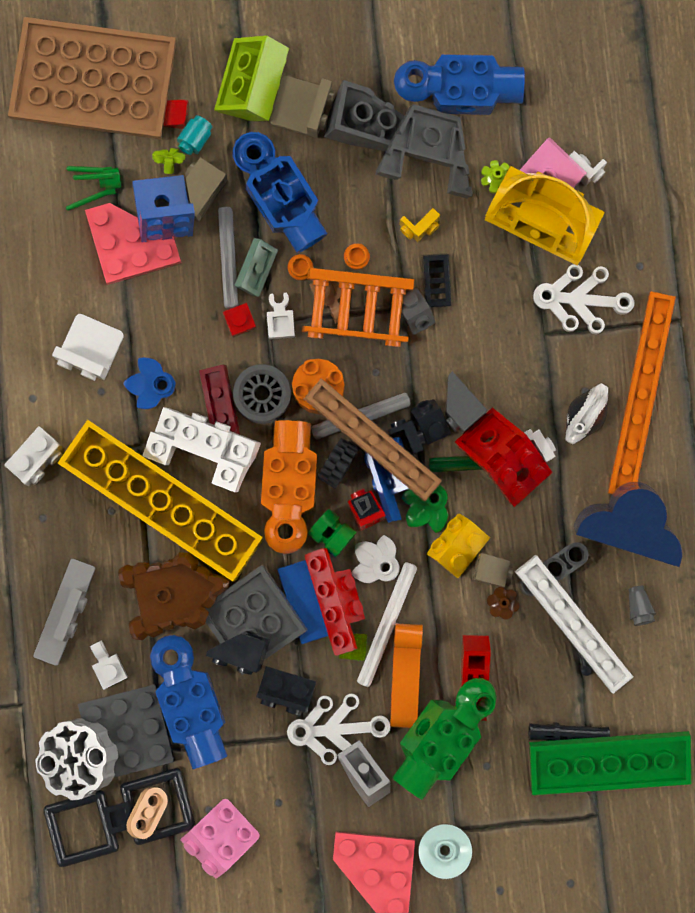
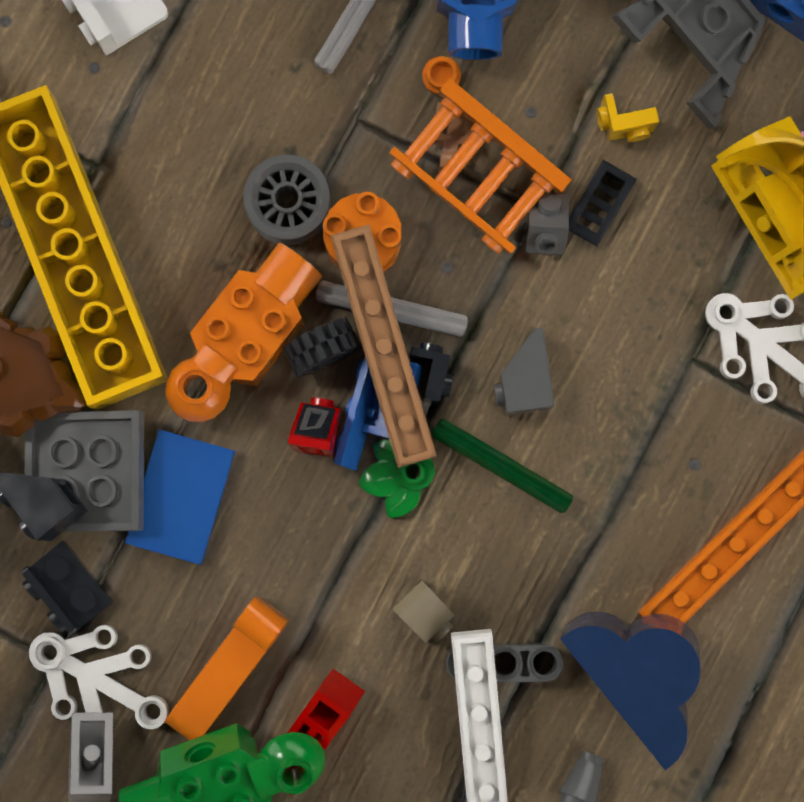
camera: 30 degrees right, 0 degrees up
(146, 383) = (154, 95): blue plate -> none
(214, 442) = (182, 216): white bracket -> none
(219, 396) = (218, 197): dark red plate -> none
(239, 319) = (322, 91): red plate -> none
(256, 267) = (386, 39): sand green plate -> none
(280, 321) = (371, 125): white plate -> none
(336, 599) = (205, 517): red bracket -> none
(339, 539) = (261, 442): green wheel -> none
(356, 256) = (520, 108): orange plate -> none
(360, 652) = (187, 588): clear neon green slope -> none
(372, 559) = (286, 496): white plate -> none
(387, 624) = (248, 589): white axle -> none
(431, 421) = (474, 372): black bracket -> none
(458, 545) = (404, 551): yellow bracket -> none
(494, 175) = (758, 117): lime plant -> none
(495, 603) = (405, 651): reddish brown plant -> none
(505, 455) = (538, 478): red bracket -> none
(543, 445) = (594, 499): white bracket -> none
(587, 413) = (678, 494): white hat -> none

